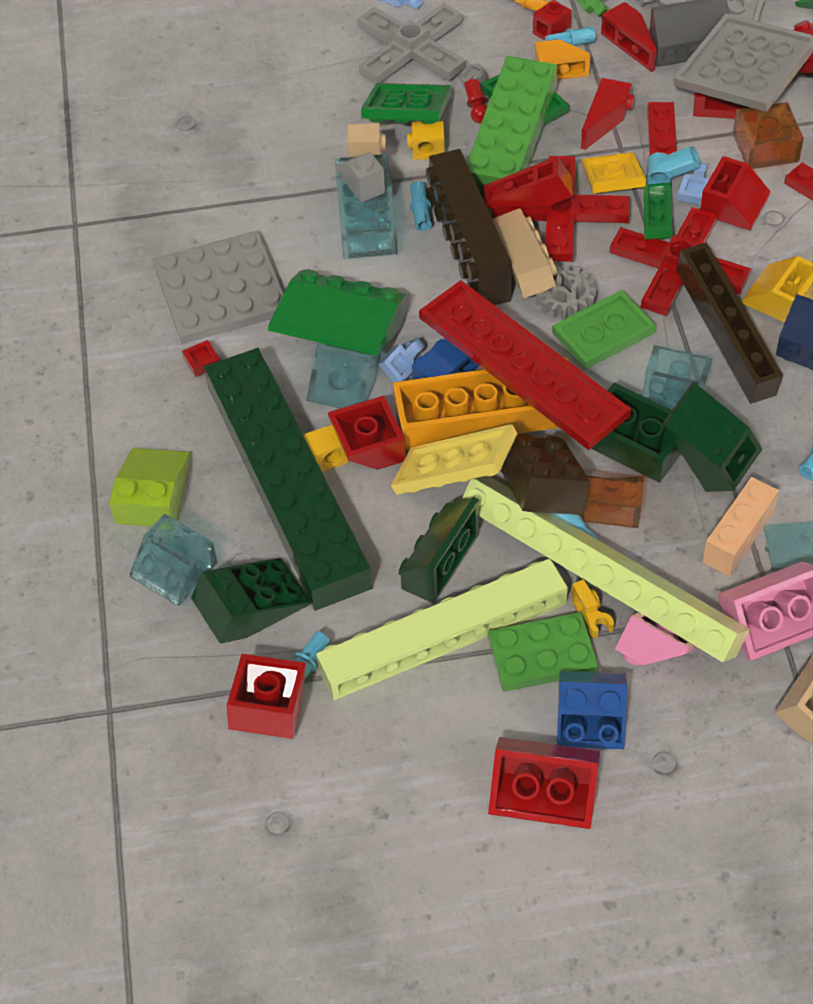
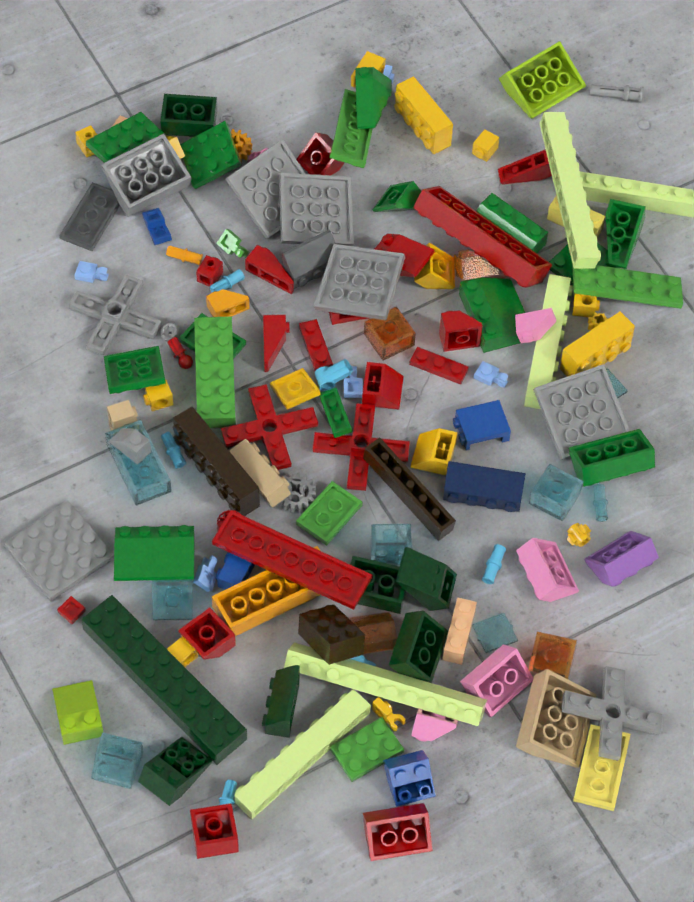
camera: 25 degrees left, 5 degrees up
(454, 460) = (271, 640): light yellow plate -> none
(531, 187) = (248, 422): red slope -> none
(669, 526) = (418, 646): none -> dark green brick

